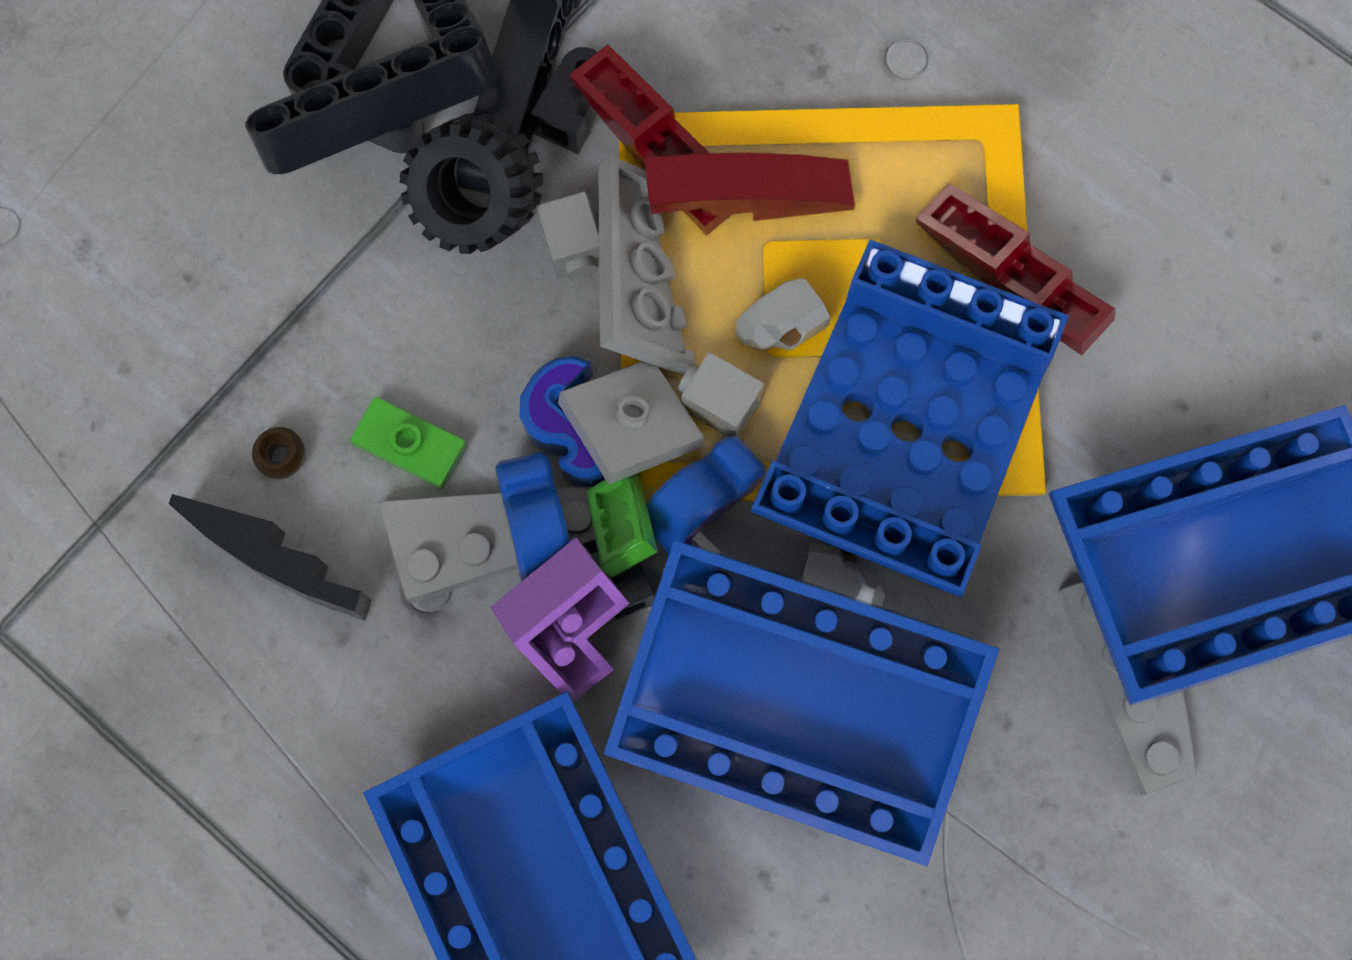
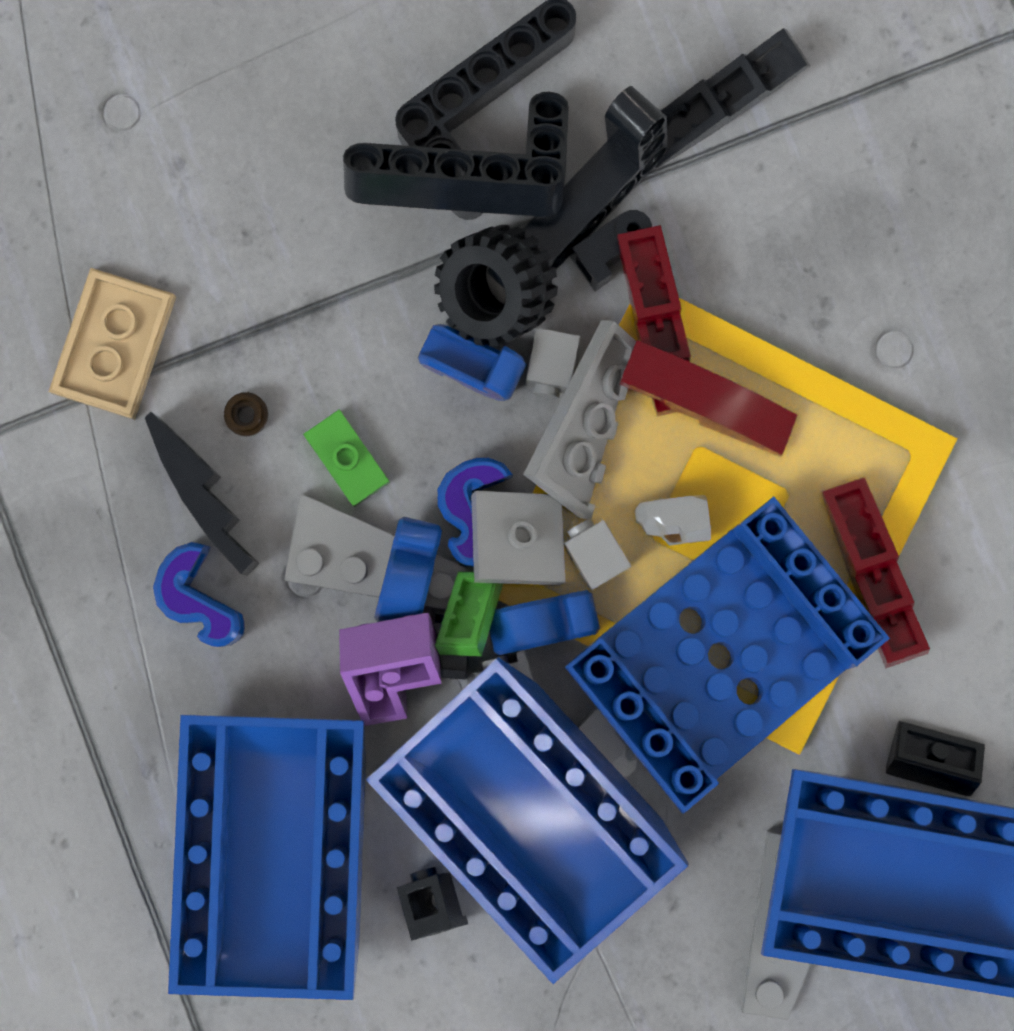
camera: 25 degrees right, 10 degrees up
(99, 456) = (112, 343): none -> tan tile
(318, 678) = (188, 605): none -> blue animal
(490, 277) = (474, 366): none -> blue animal
(726, 859) = (420, 914): none -> black brick
(1184, 423) = (936, 759): none -> black slope

